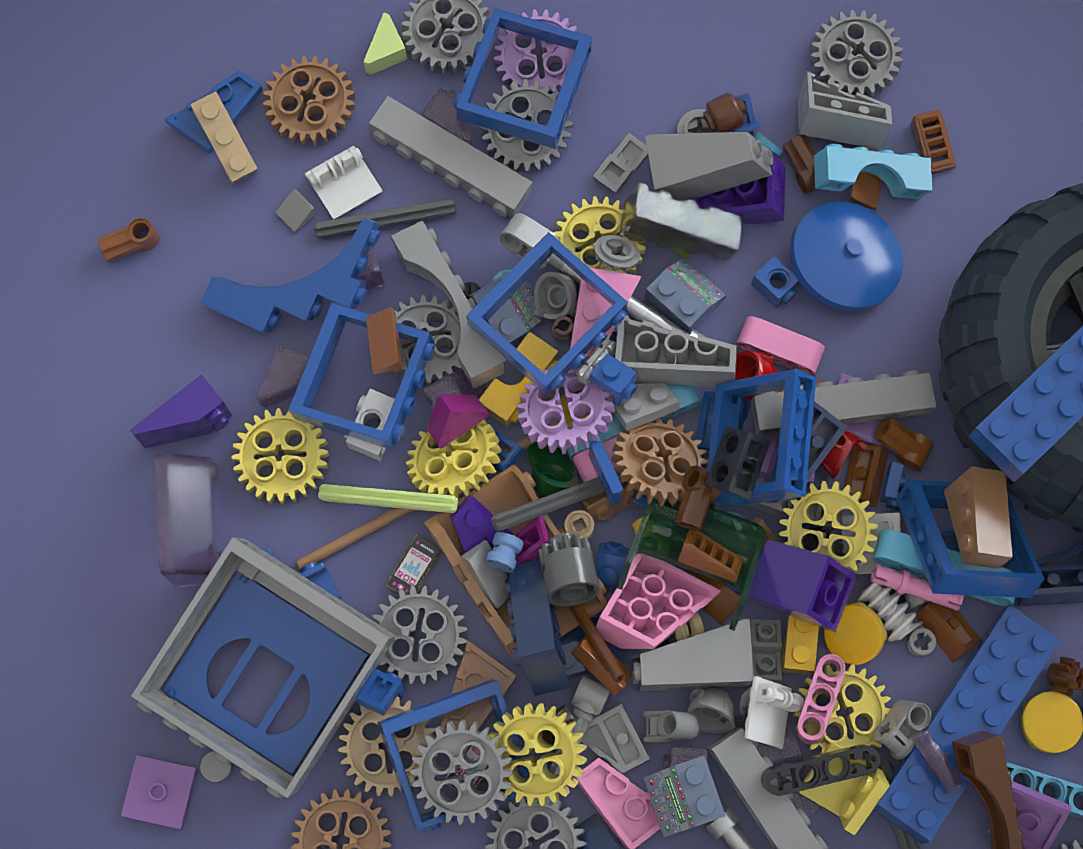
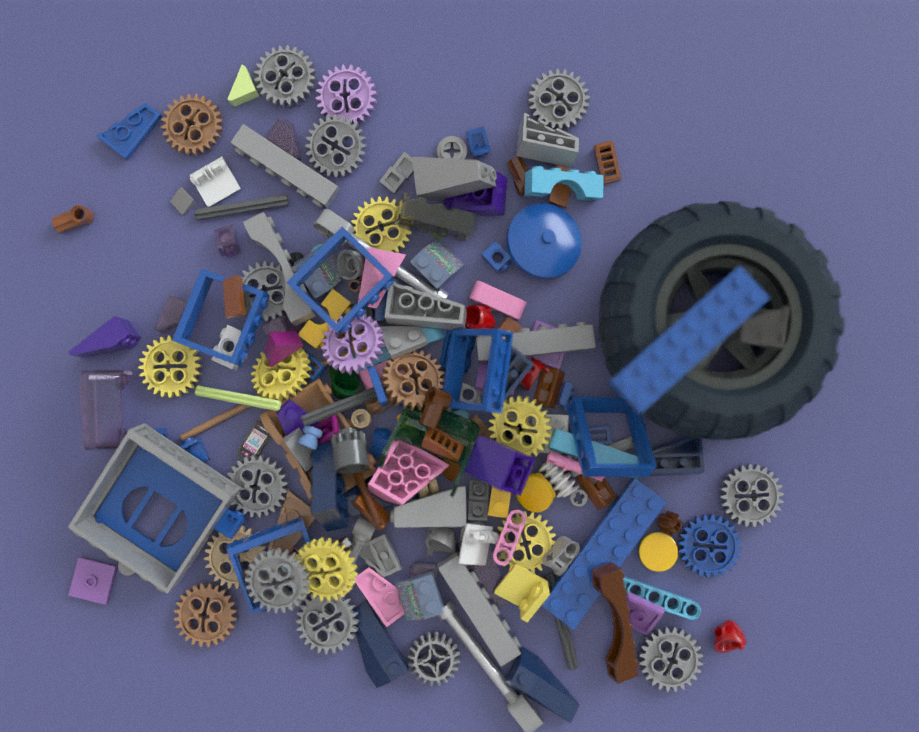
camera: 10 degrees right, 10 degrees up
(224, 137) = (130, 147): tan arch -> none
(302, 298) = (159, 266): blue arch -> none
(508, 124) = (348, 155): blue window -> none
(594, 359) = (373, 312): light grey axle -> none
(609, 245) = (389, 231): light grey gear -> none
(615, 378) = (383, 326): blue bracket -> none
(669, 726) = (414, 549): light grey piece -> none
(725, 113) = (467, 142): reddish brown head -> none
(737, 462) = (459, 388): black brick -> none
(776, 150) = (495, 161): medium azure piece -> none
(820, 767) = (507, 586): black beam -> none
(909, 446) = (578, 370): dark orange piece -> none
(938, 762) = (581, 581): clear purple pin -> none
(981, 516) = (617, 428): medium nougat wedge -> none

